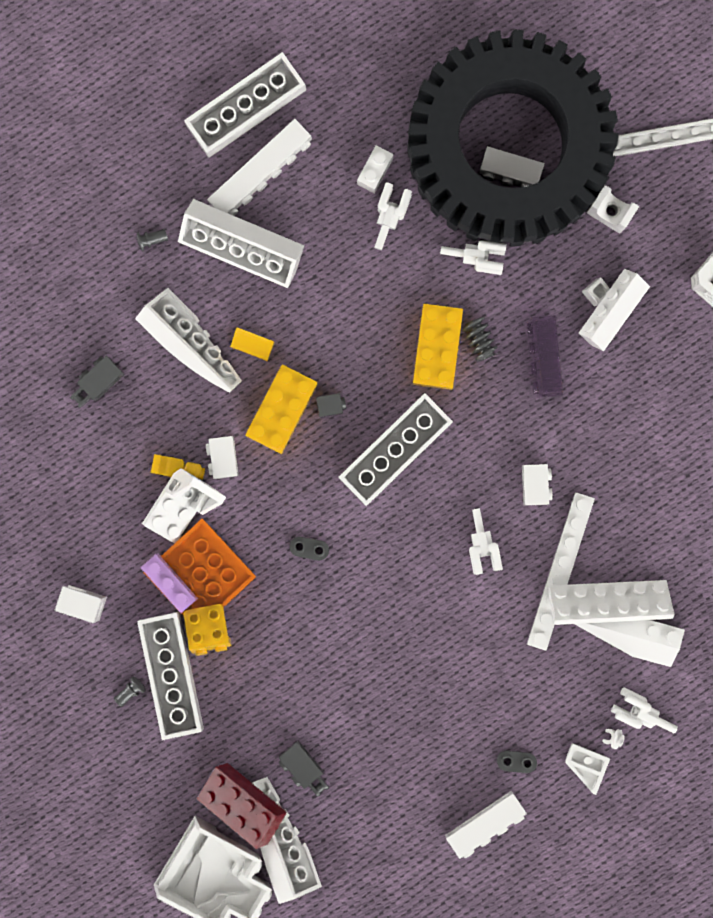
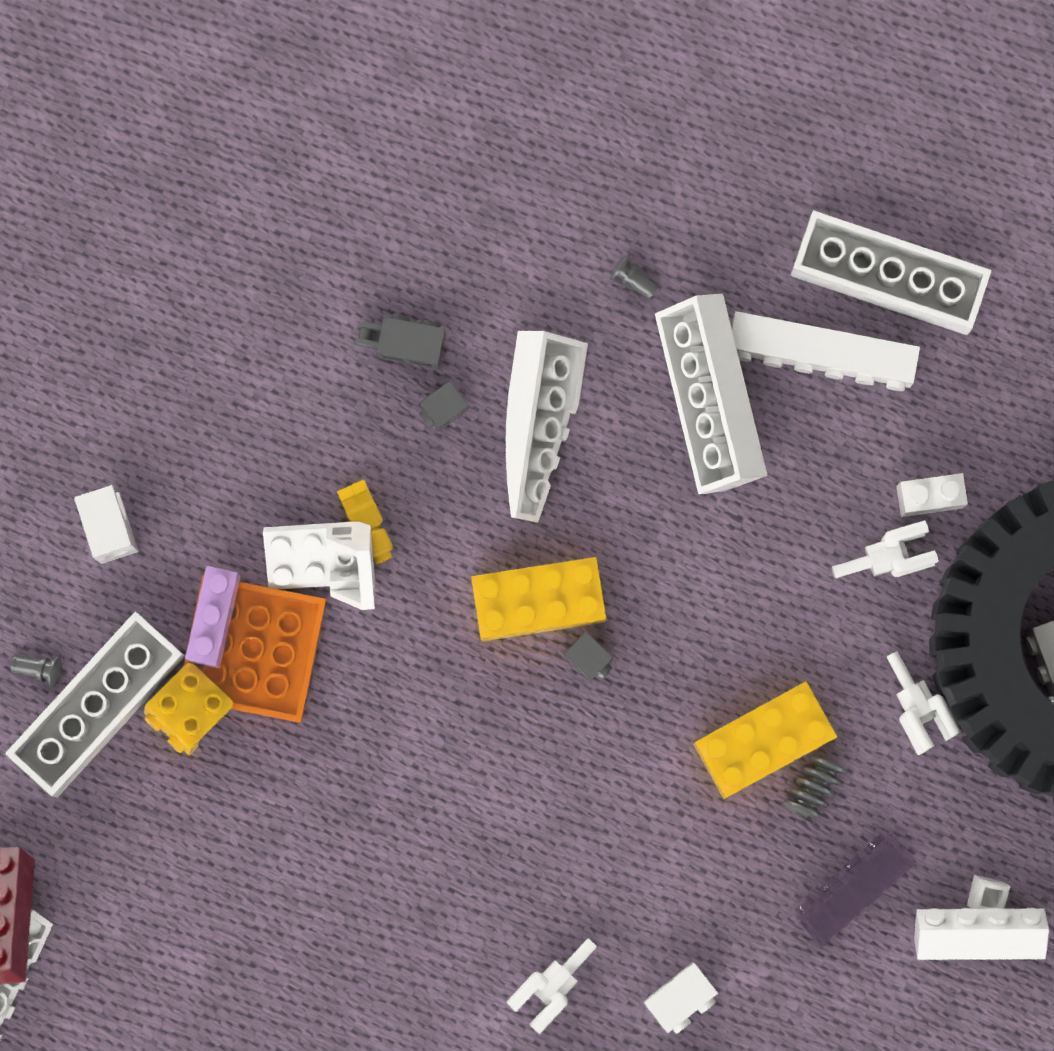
camera: 50 degrees right, 5 degrees down
(146, 386) = (443, 407): none -> dark grey brick
(223, 457) = (422, 568): white brick -> none
(252, 344) = (594, 501): yellow slope -> none
(303, 768) = (97, 962): dark grey brick -> none
(309, 547) = (387, 763): dark grey plate -> none
(395, 449) = (593, 782): white brick -> none

